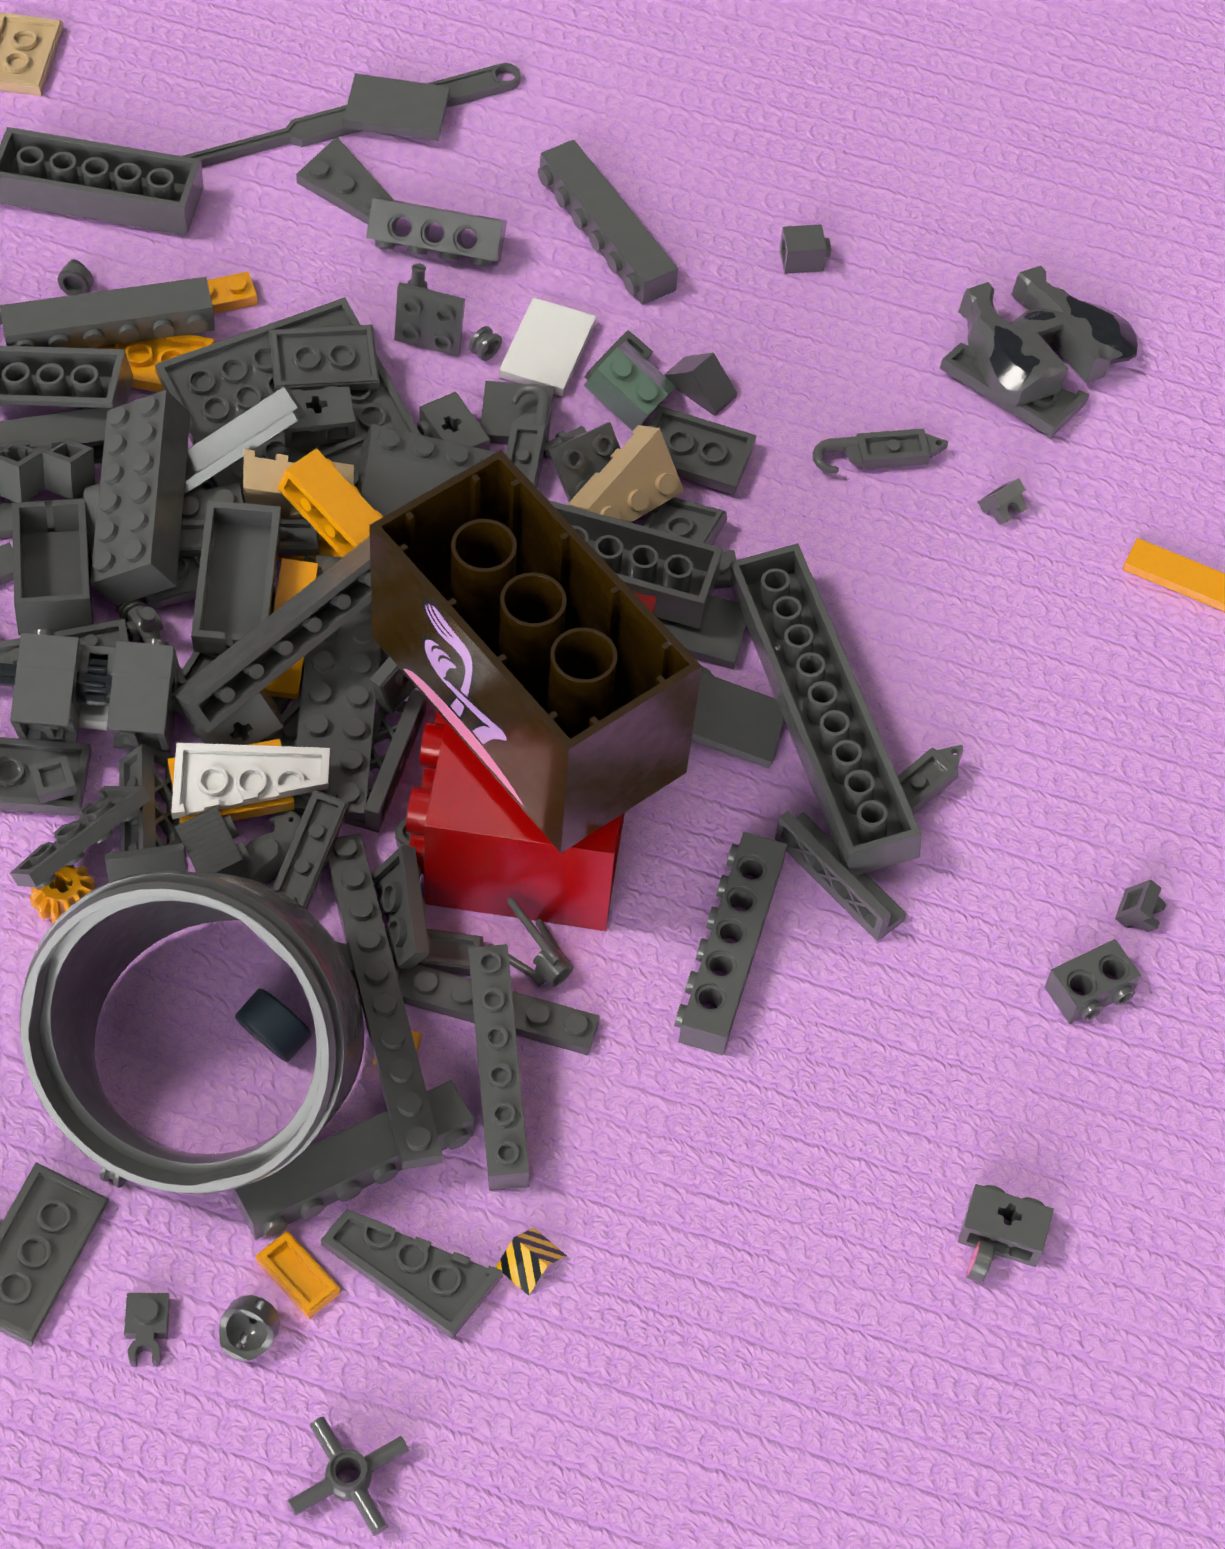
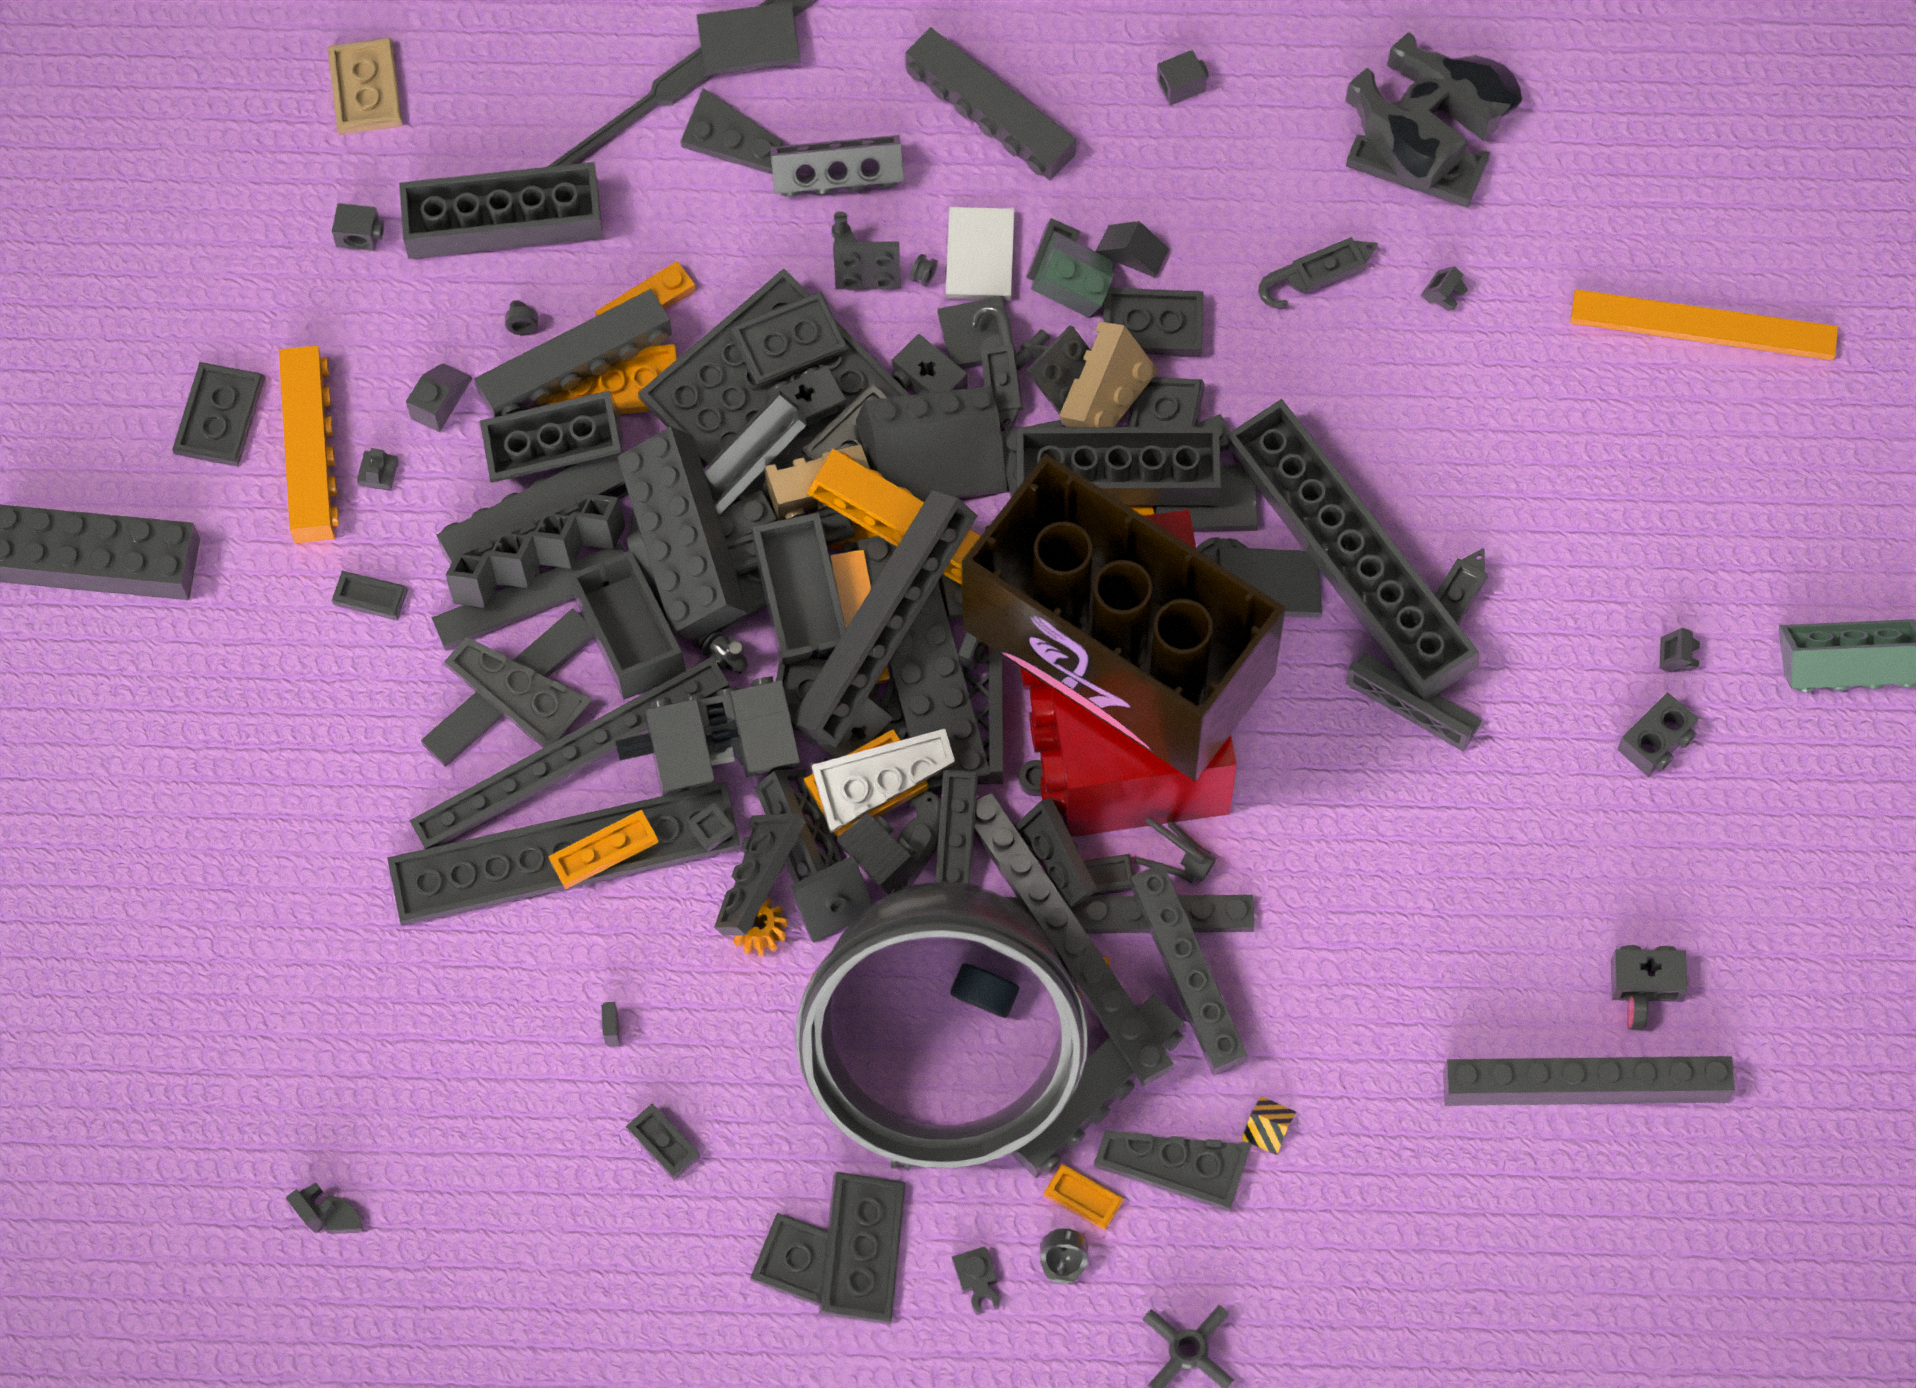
camera: 10 degrees left, 10 degrees up
(712, 1027) = (1346, 709): dark grey brick -> none
(903, 1317) = (1588, 1080): none -> dark grey brick

